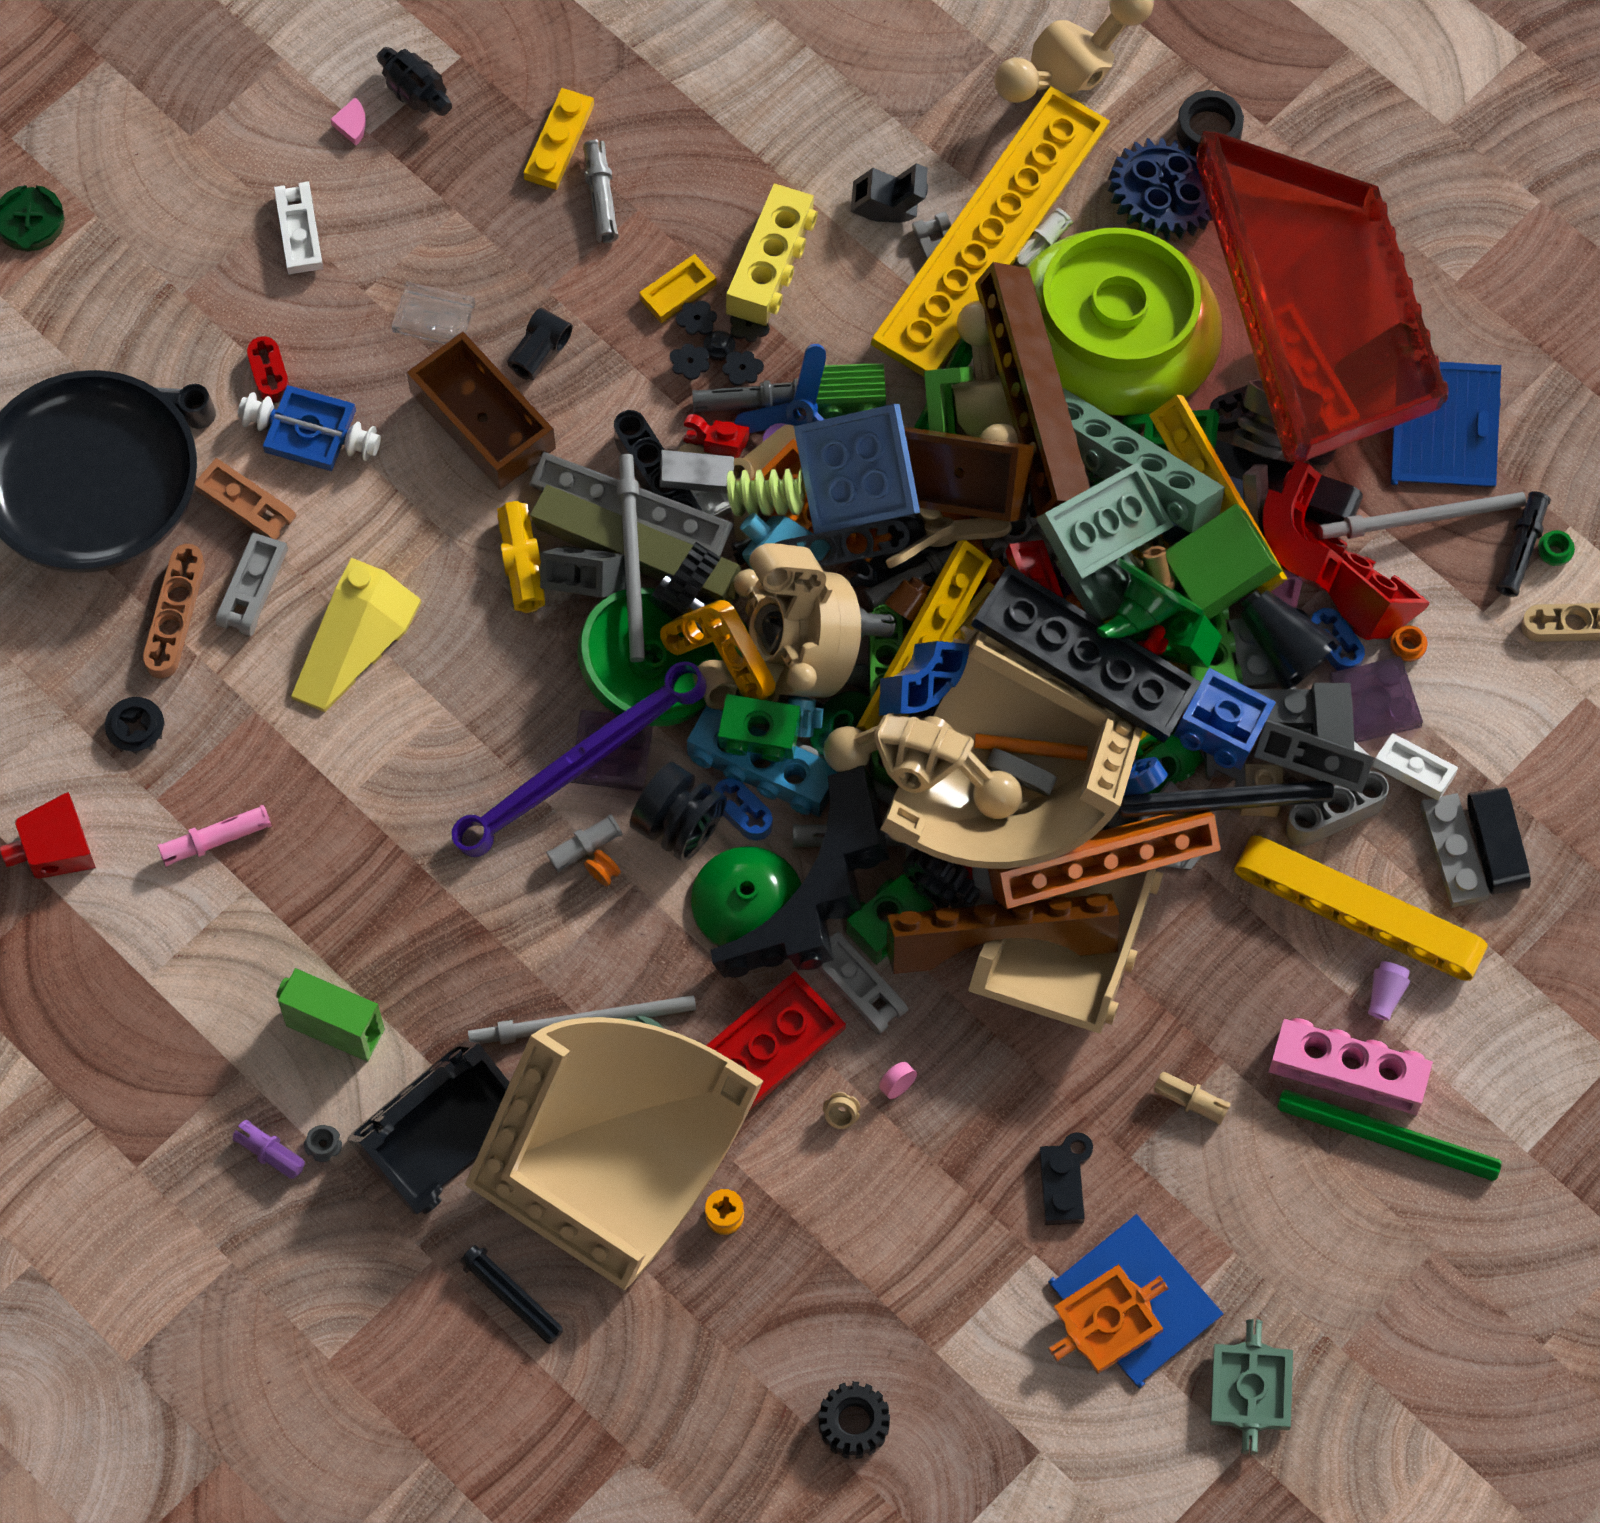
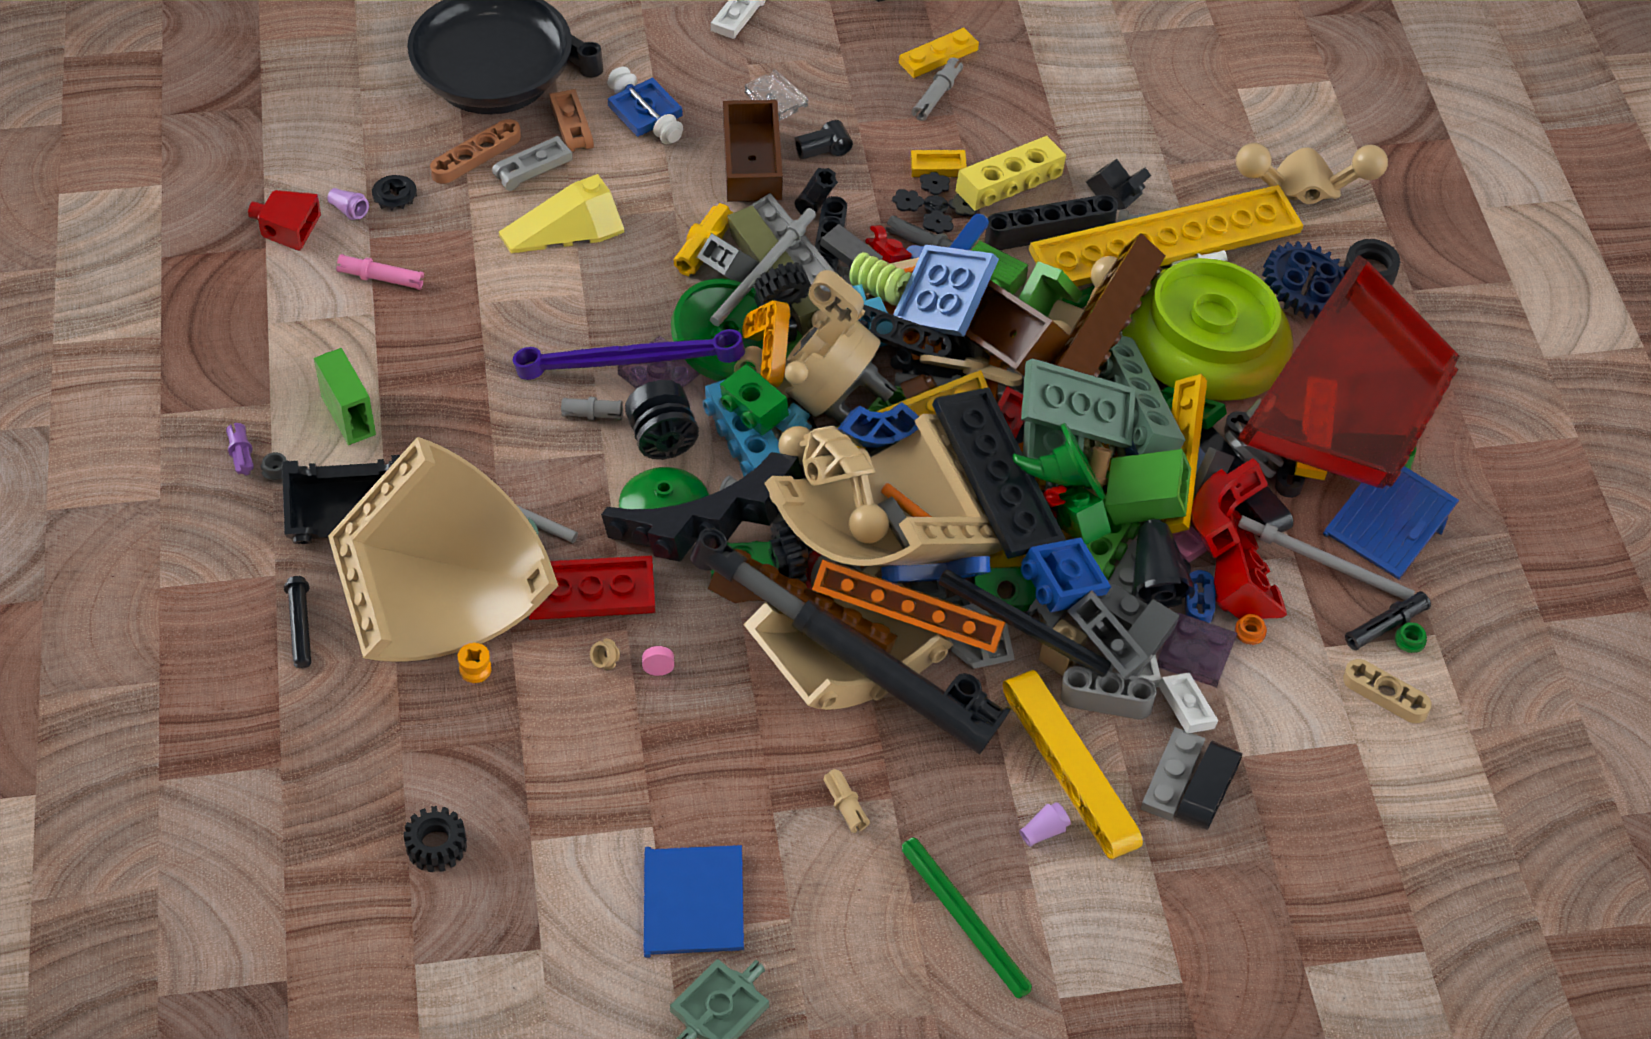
camera: 35 degrees right, 15 degrees down
(99, 774) = (351, 204): none -> lavender cone
(275, 367) = (645, 66): red beam -> none
(595, 419) = (816, 190): none -> black piece
(602, 868) = (589, 427): orange bush -> none
(749, 803) = (715, 451): blue beam -> none
(860, 274) = (1041, 222): none -> black beam
(861, 985) = (687, 594): light grey plate -> none
(1063, 1181) = (712, 794): black hinge -> none
(1108, 1319) = (659, 892): orange plate -> none
(1220, 930) = (959, 710): none -> black piece
(1330, 1073) = (998, 894): bright pink brick -> none

